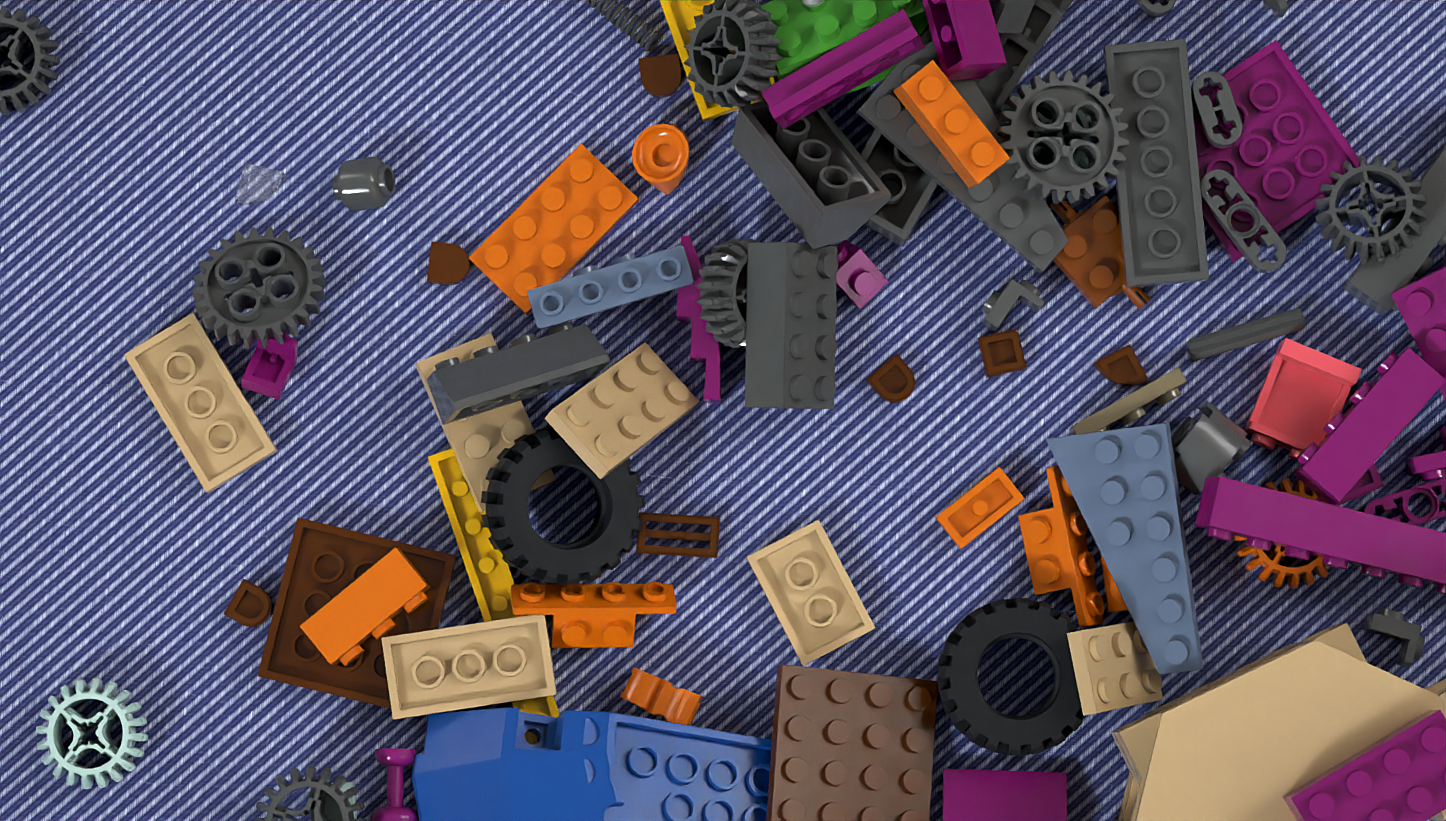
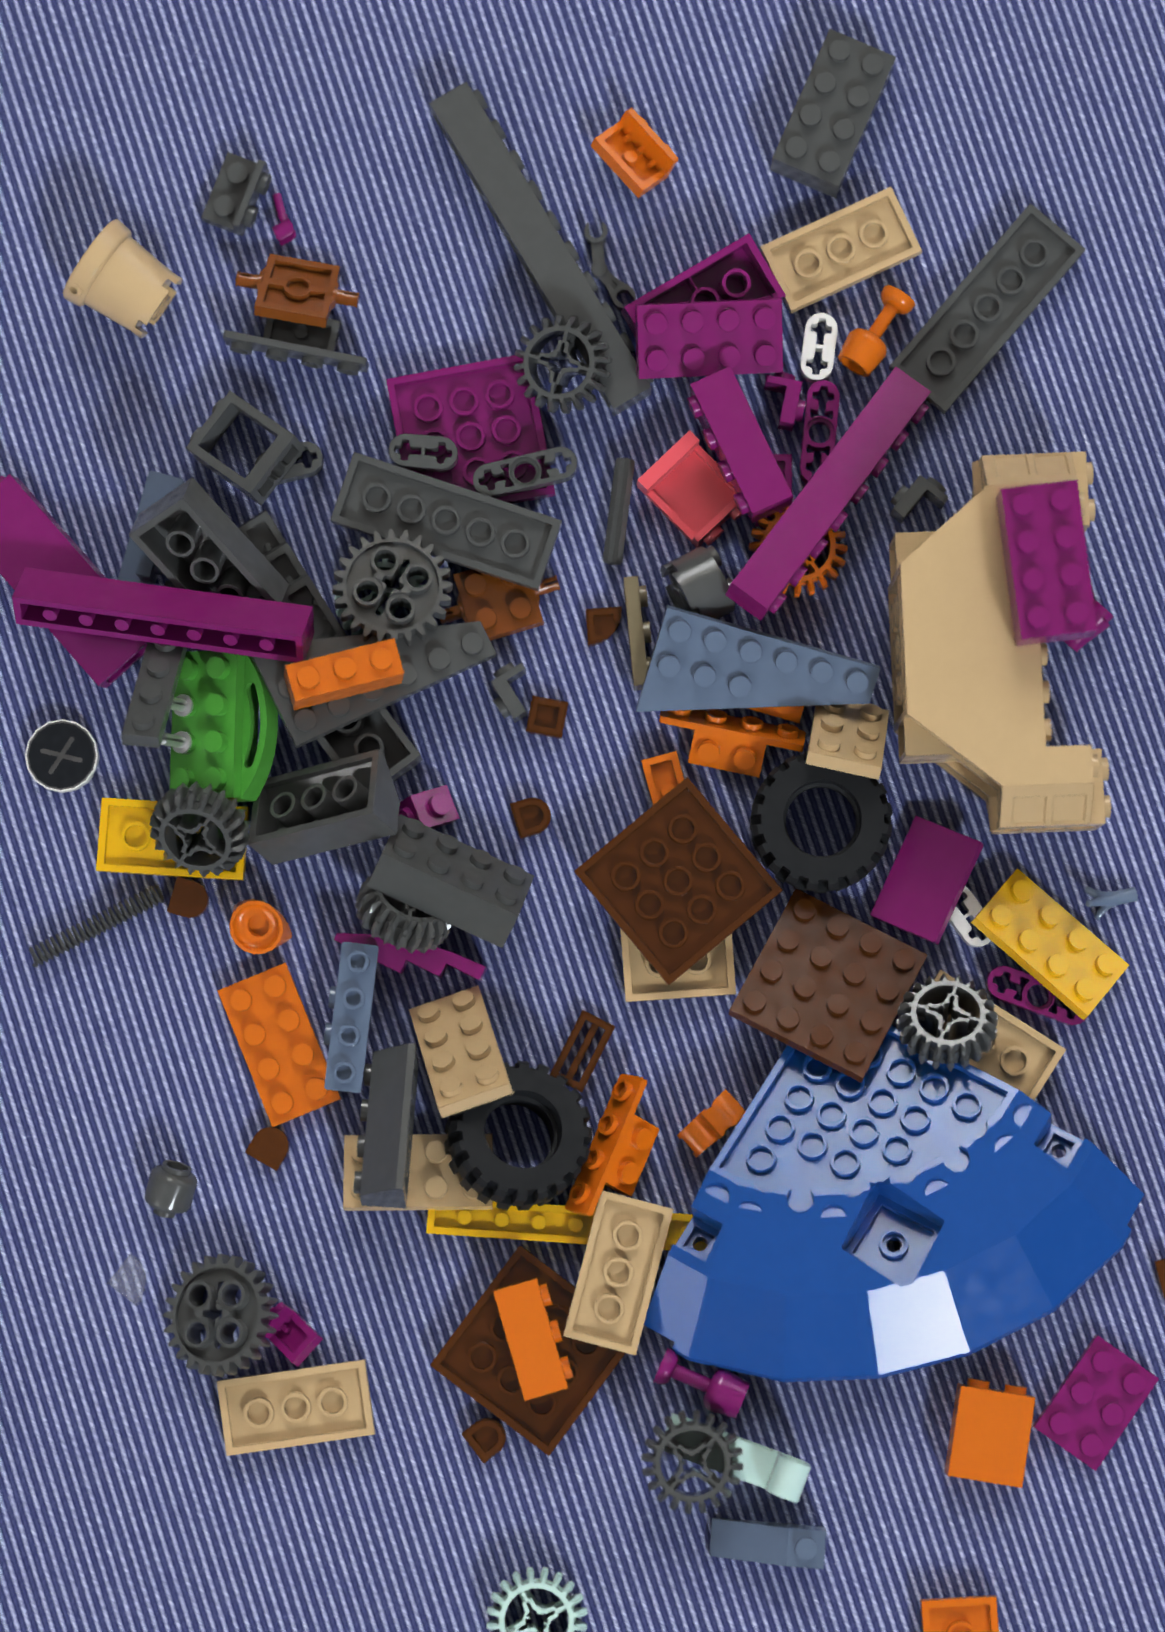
camera: 70 degrees left, 0 degrees up
(842, 69) = (256, 743): magenta fence -> none
(891, 556) = (678, 881): none -> reddish brown plate

